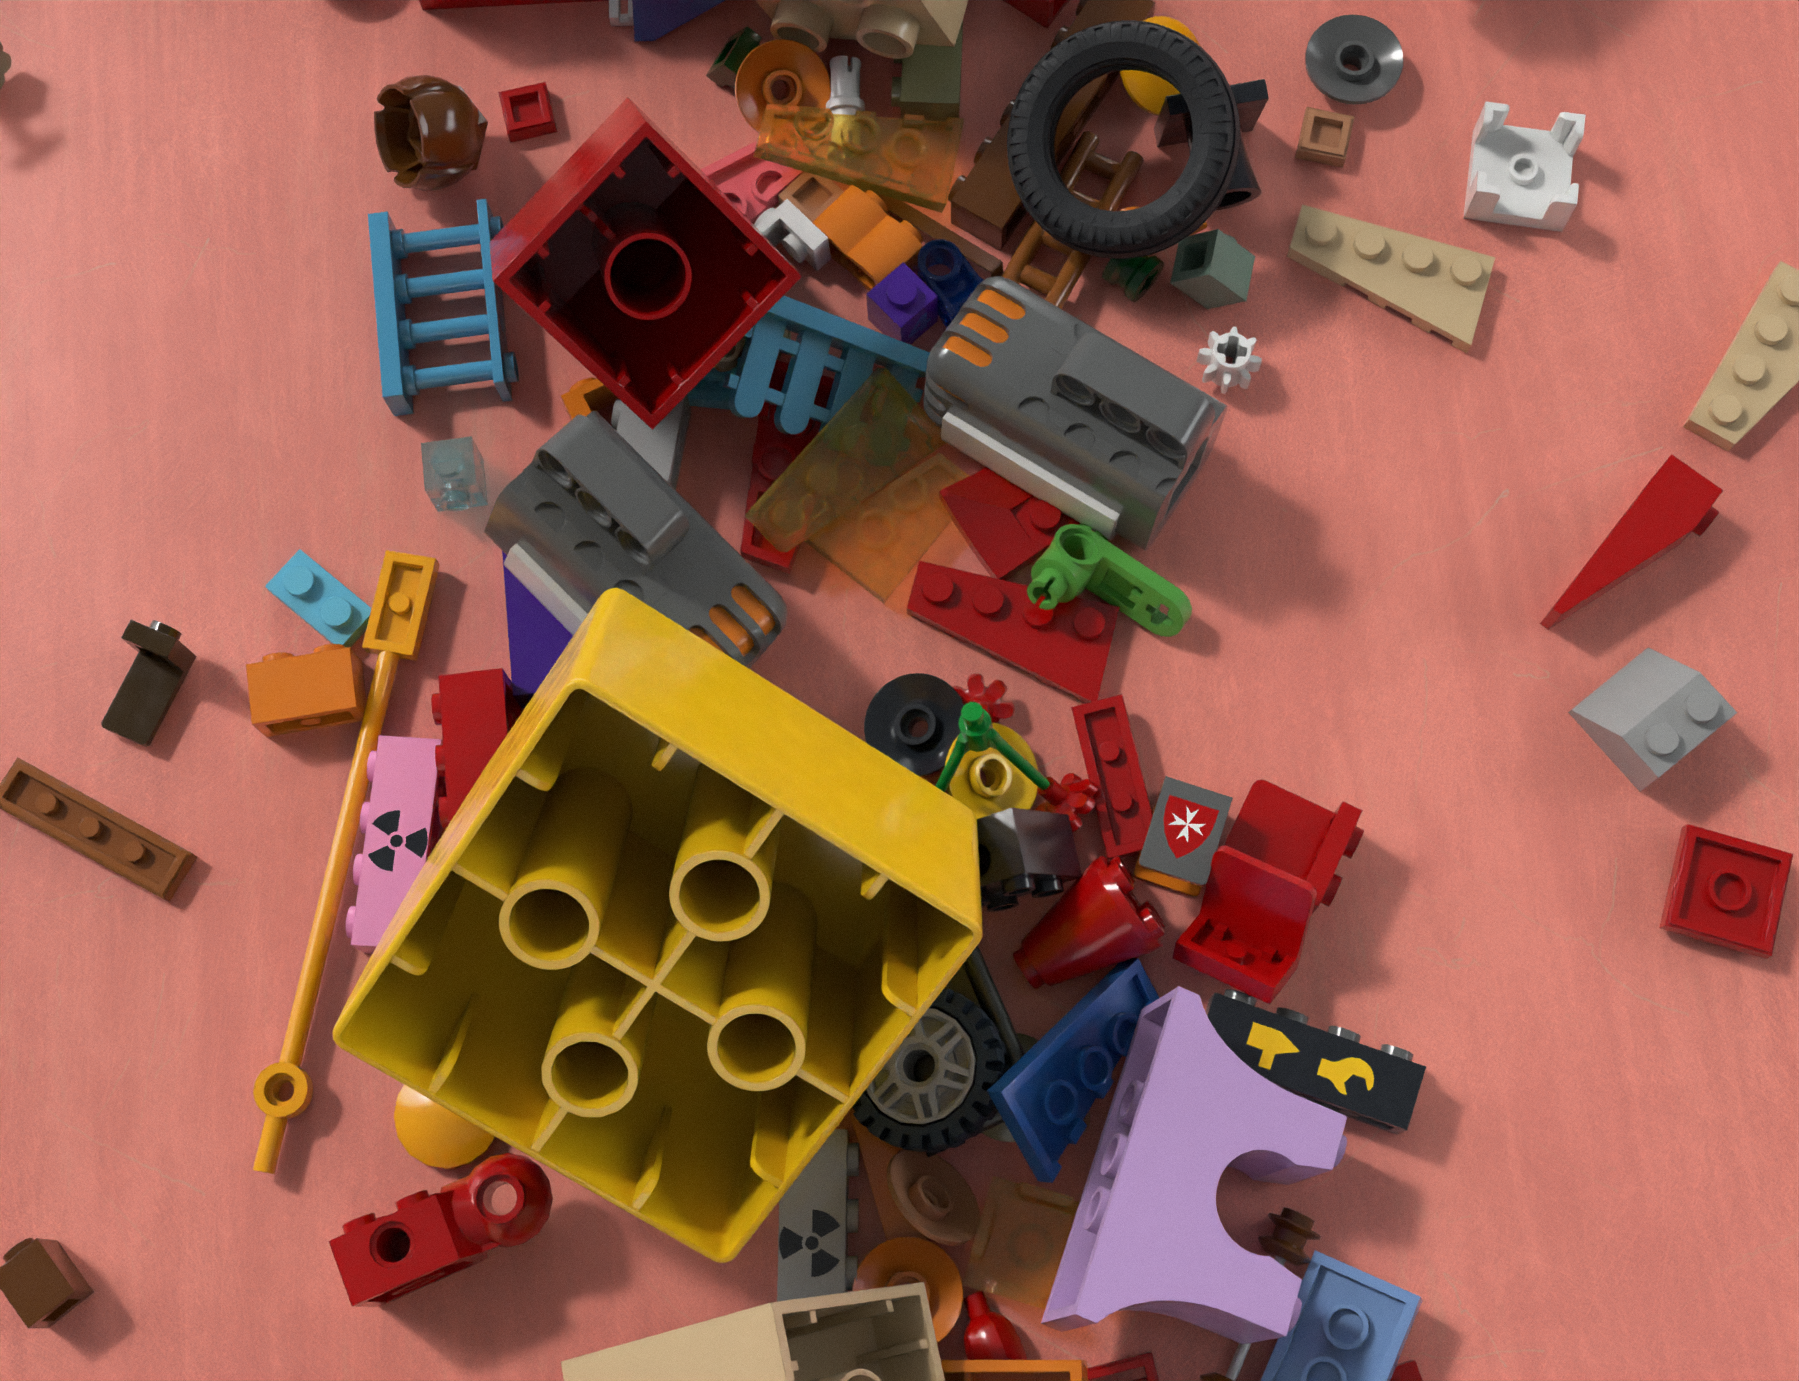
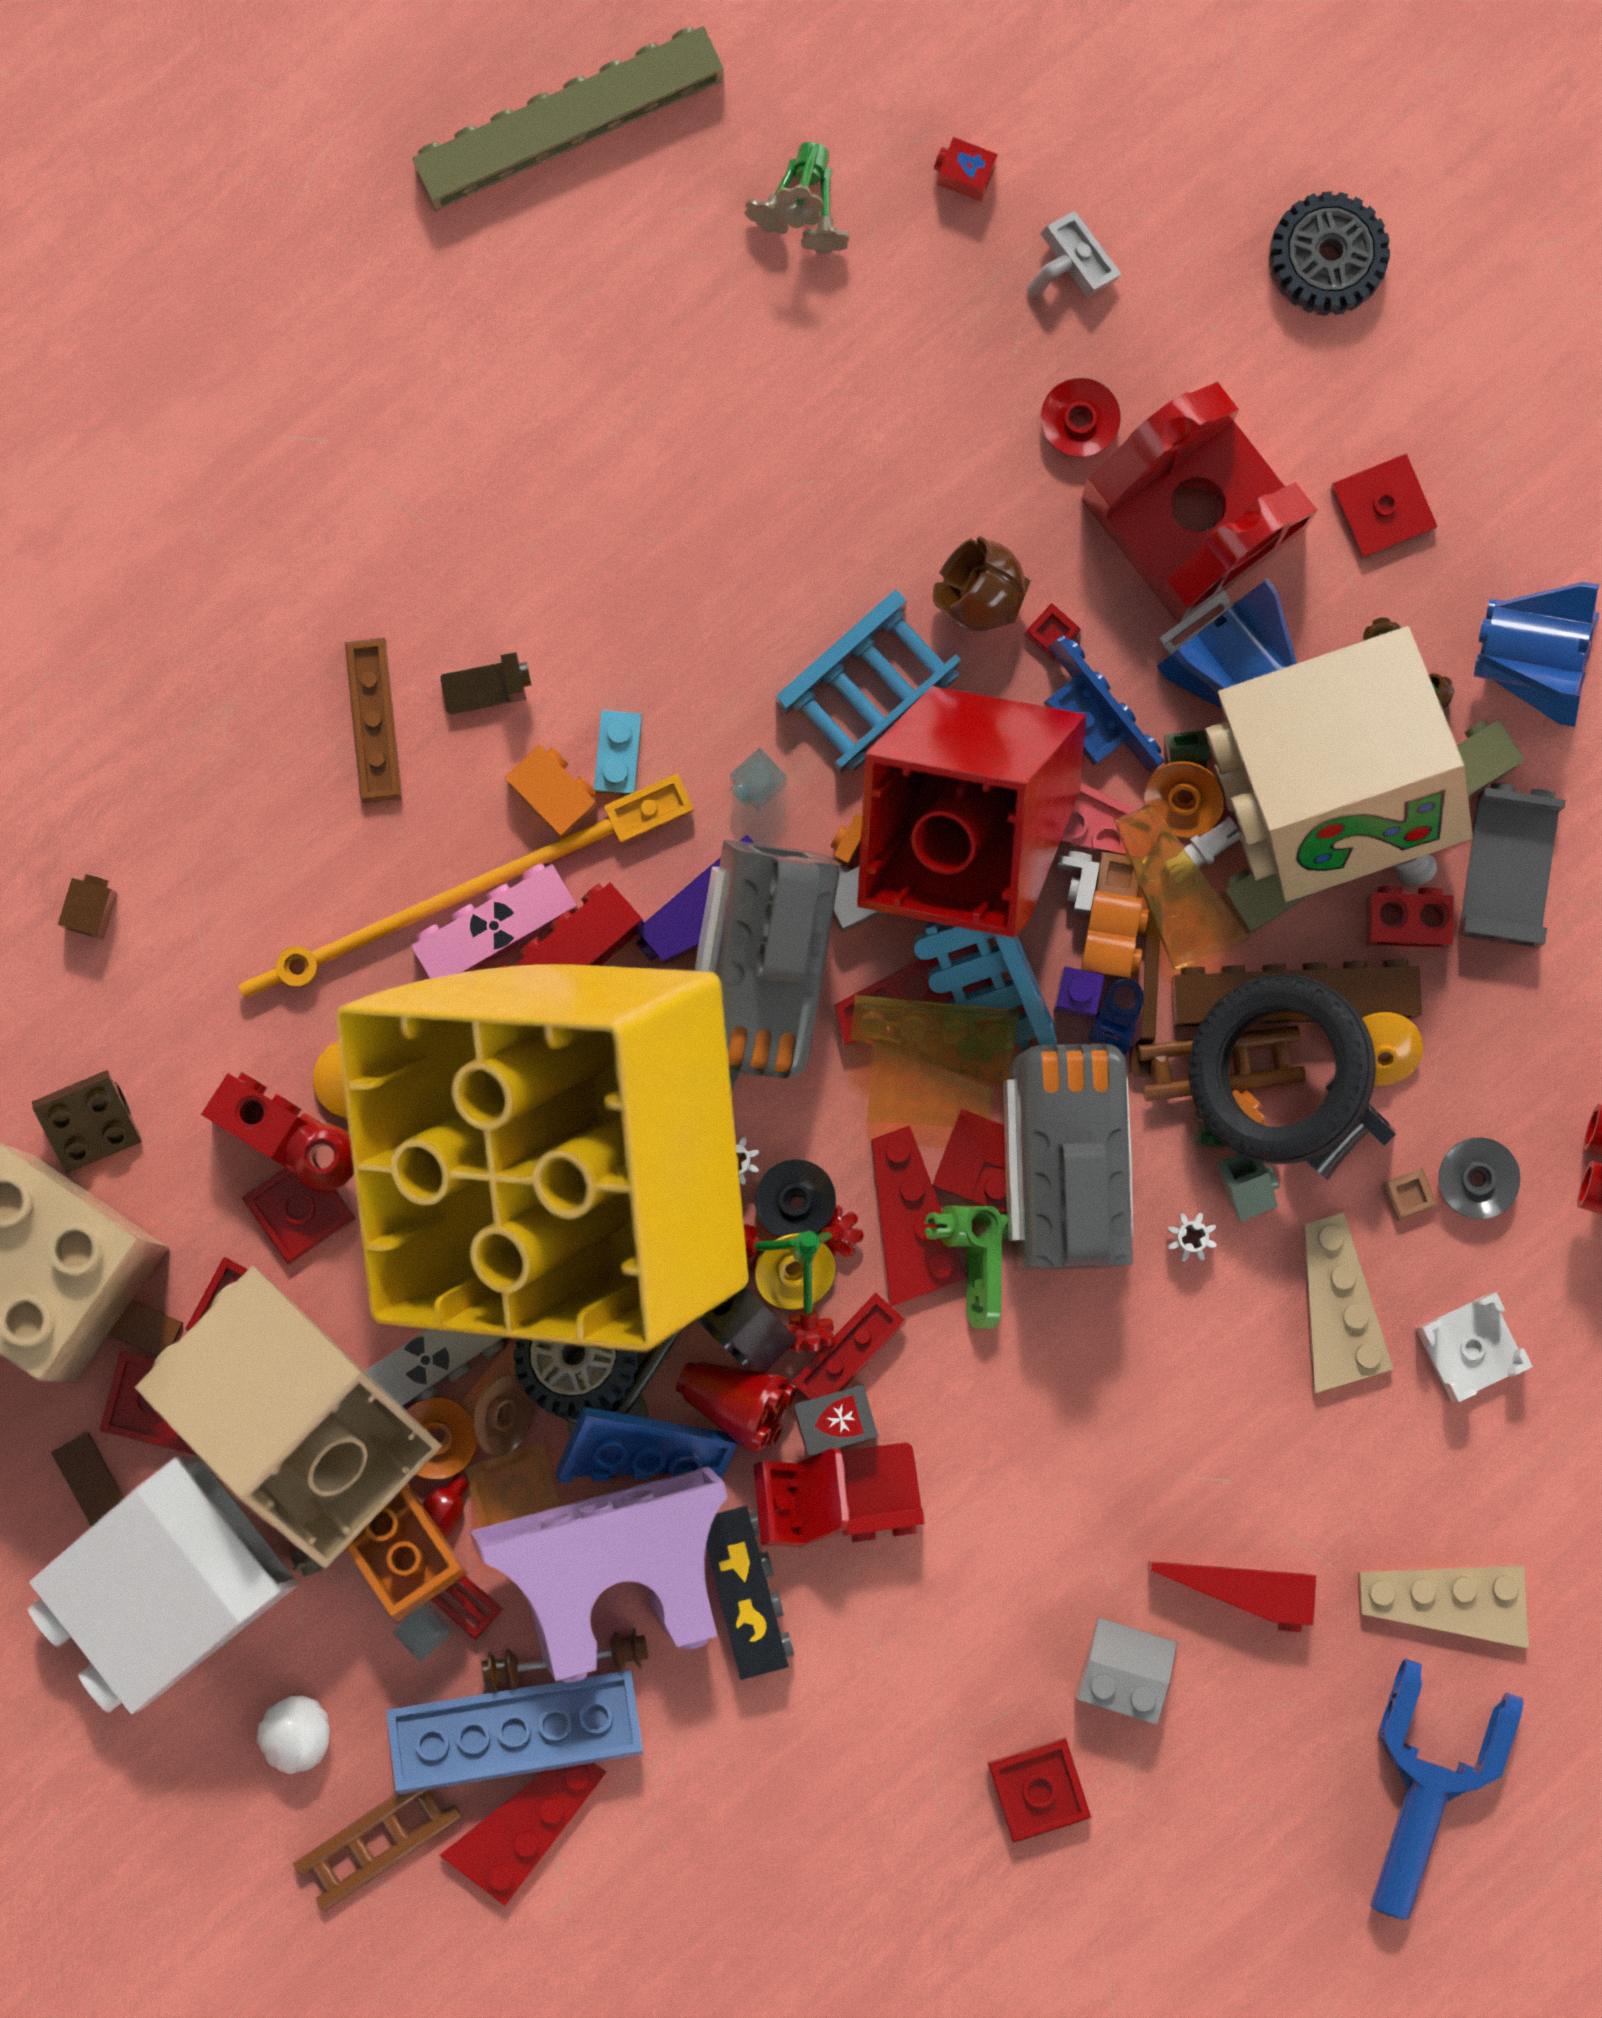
camera: 50 degrees right, 10 degrees up
(548, 1280) = (296, 1215): none -> red tile
(660, 98) = (1106, 719): none -> blue bracket

